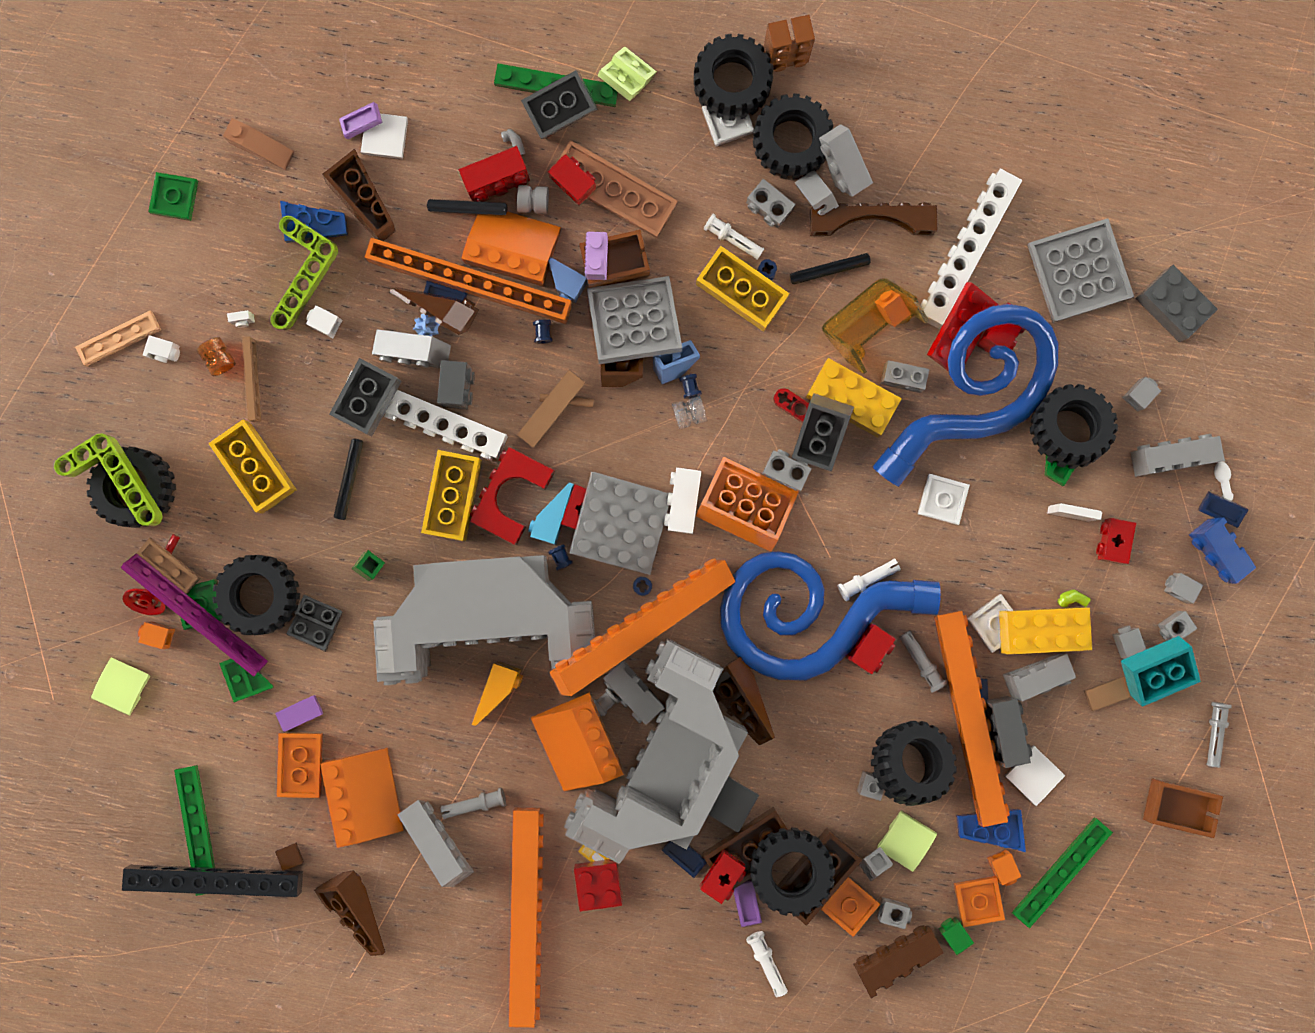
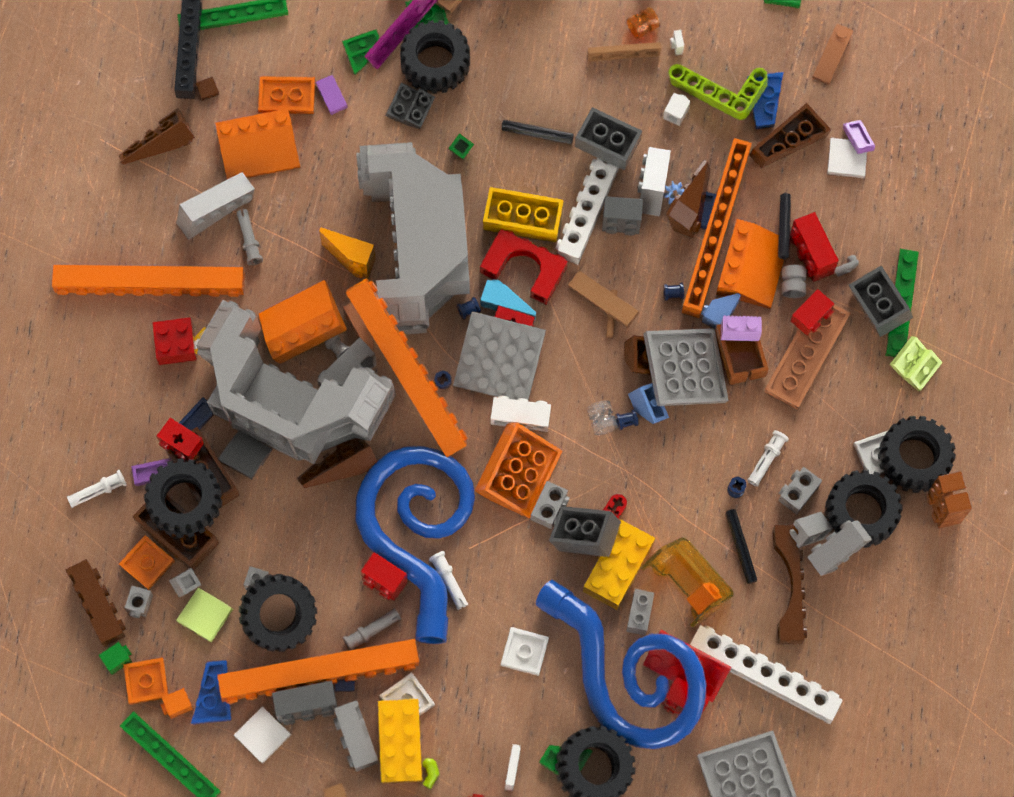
camera: 85 degrees right, 15 degrees down
(252, 466) = (547, 52): yellow brick -> none
(742, 288) = (718, 463): yellow brick -> none

